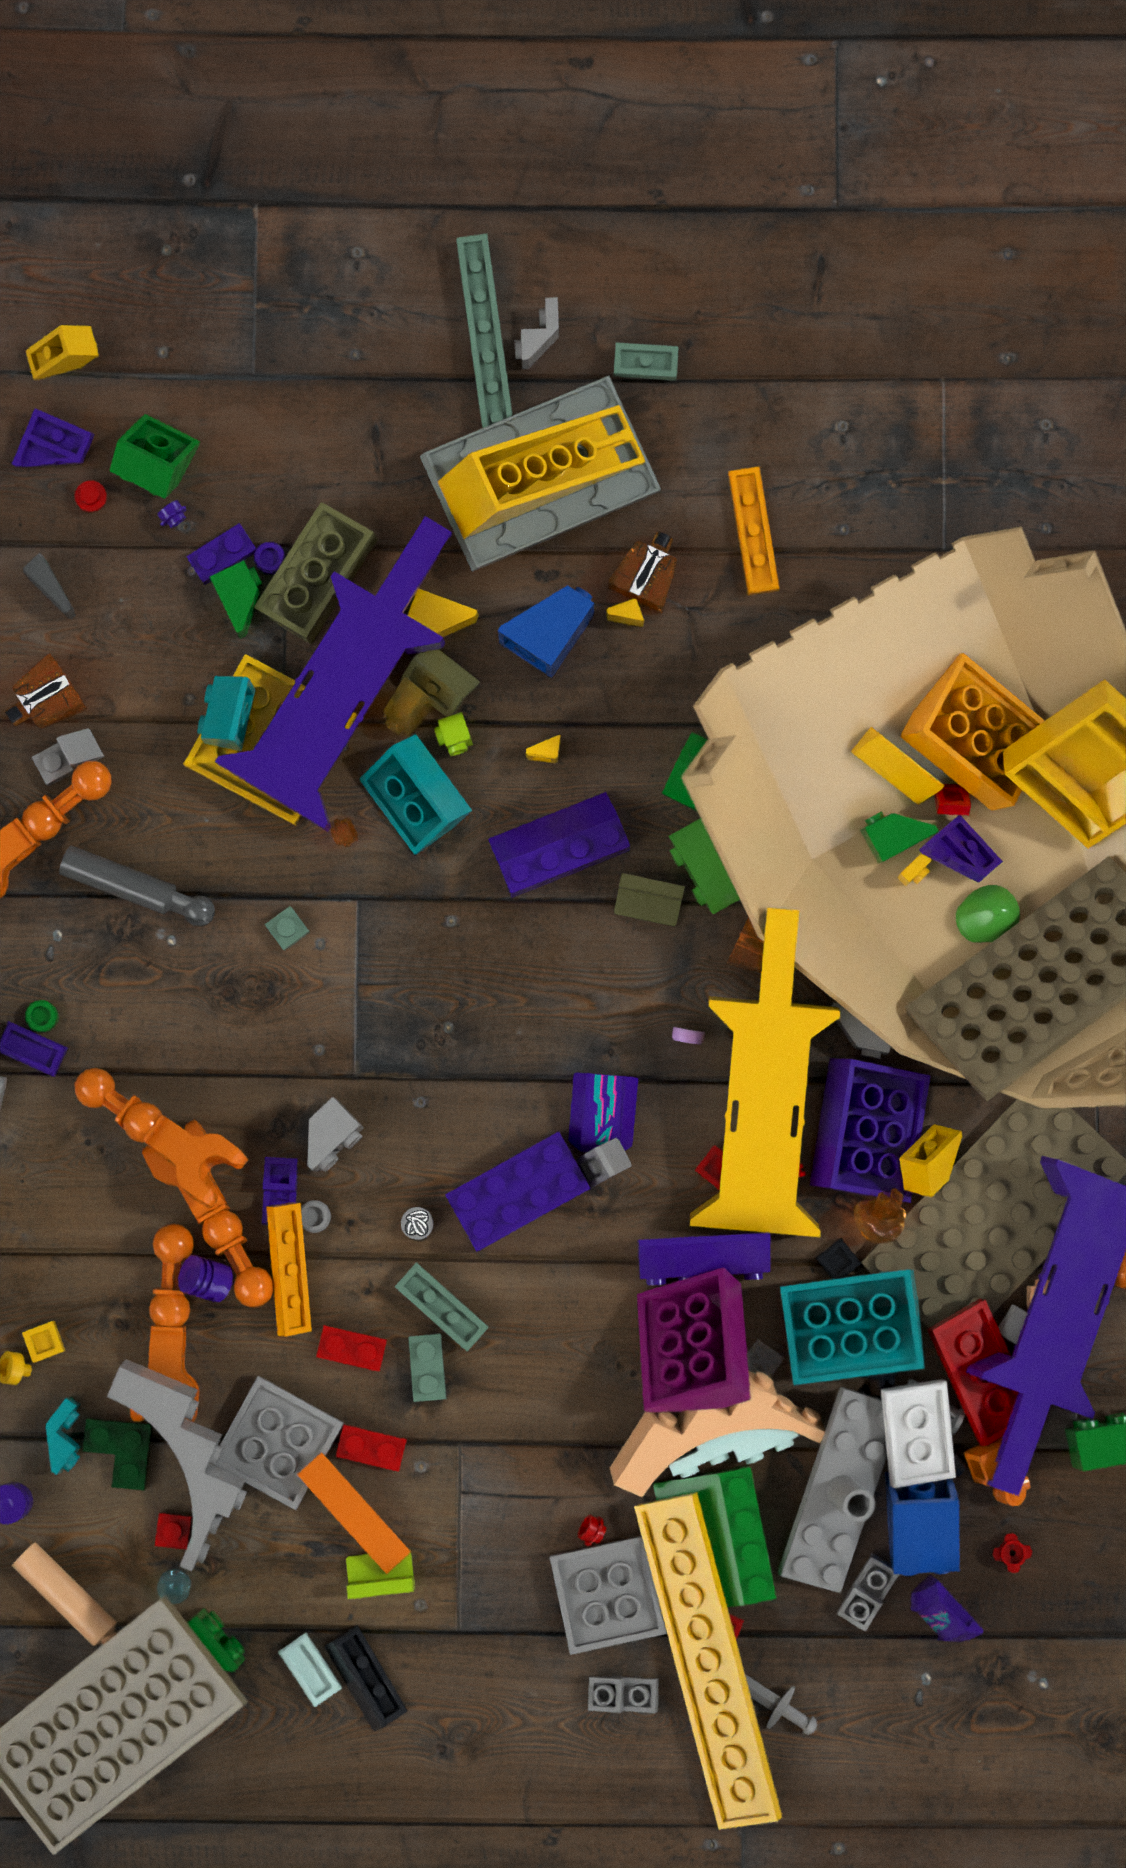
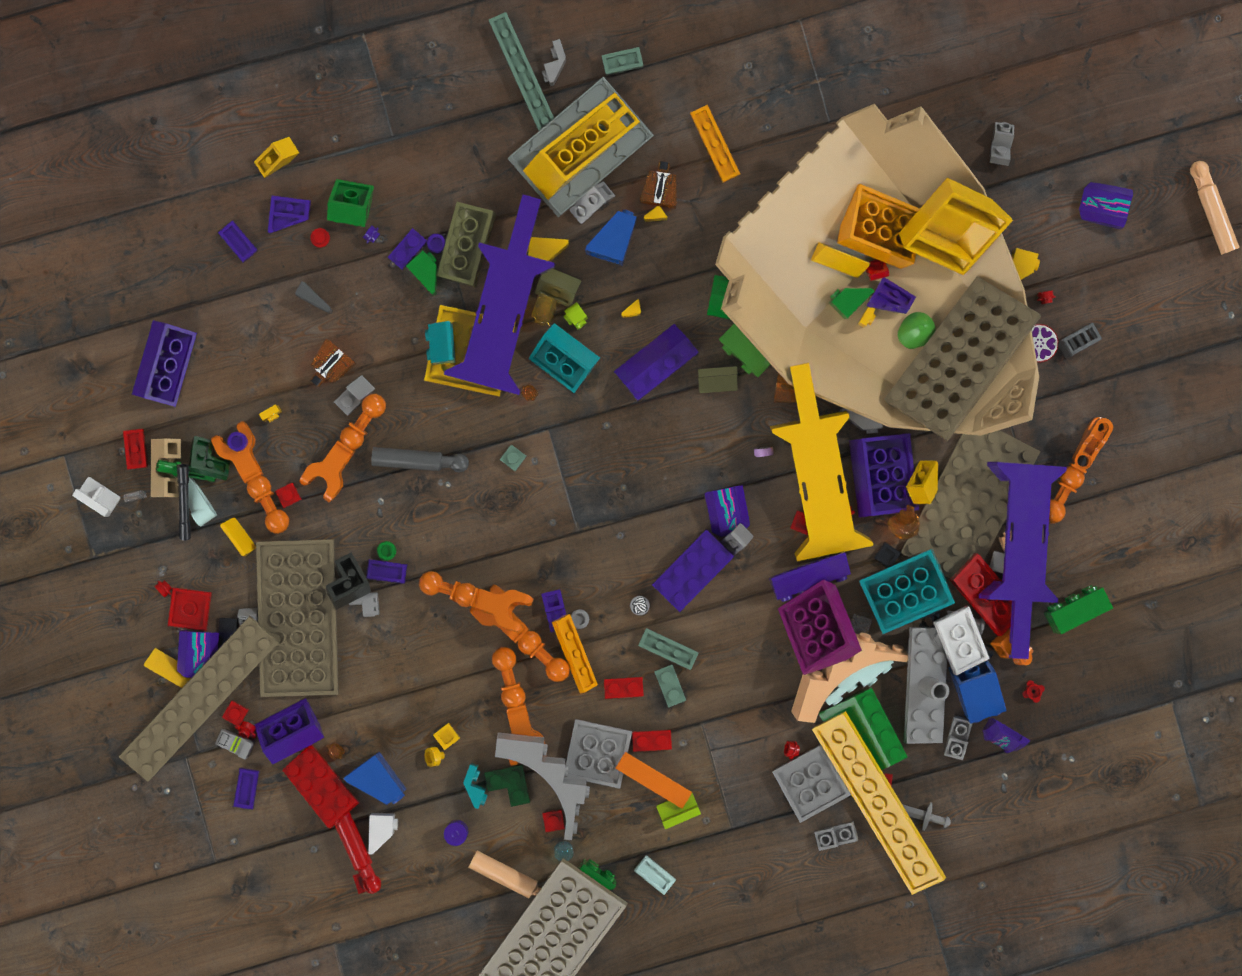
camera: 20 degrees left, 5 degrees up
(205, 1278) = (529, 673): dark purple piece -> none
(329, 1133) = (574, 569): light grey slope -> none
(365, 1678) = (687, 870): black slope -> none
(531, 563) = (591, 202): none -> light grey bracket

